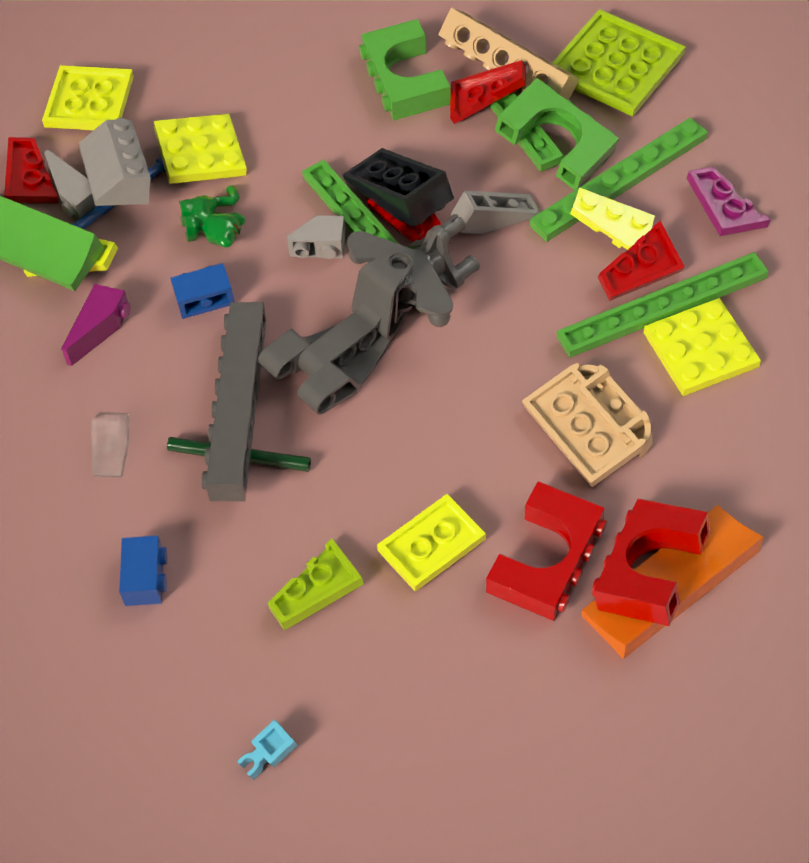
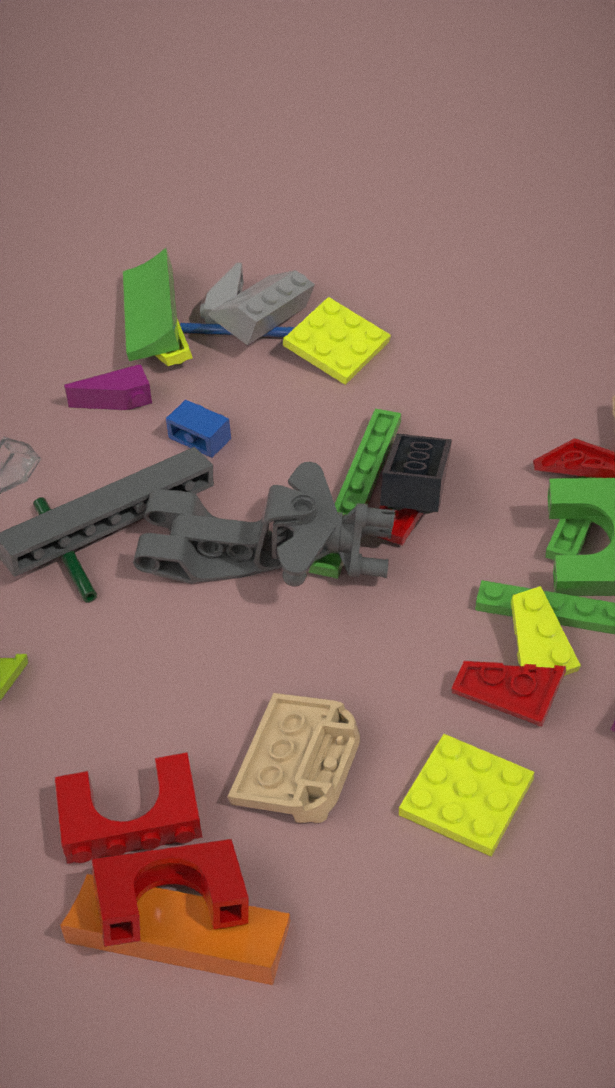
camera: 50 degrees right, 10 degrees down
(25, 173) = (209, 270): red wing -> none
(87, 97) = (322, 254): neon yellow plate -> none
(219, 228) = (266, 386): green animal -> none
(319, 238) = (324, 453): light grey slope -> none
(402, 94) = (554, 376): bright green arch -> none
(431, 542) = (74, 722): neon yellow plate -> none
(493, 210) = (461, 549): light grey slope -> none
(661, 304) = (487, 734): bright green plate -> none

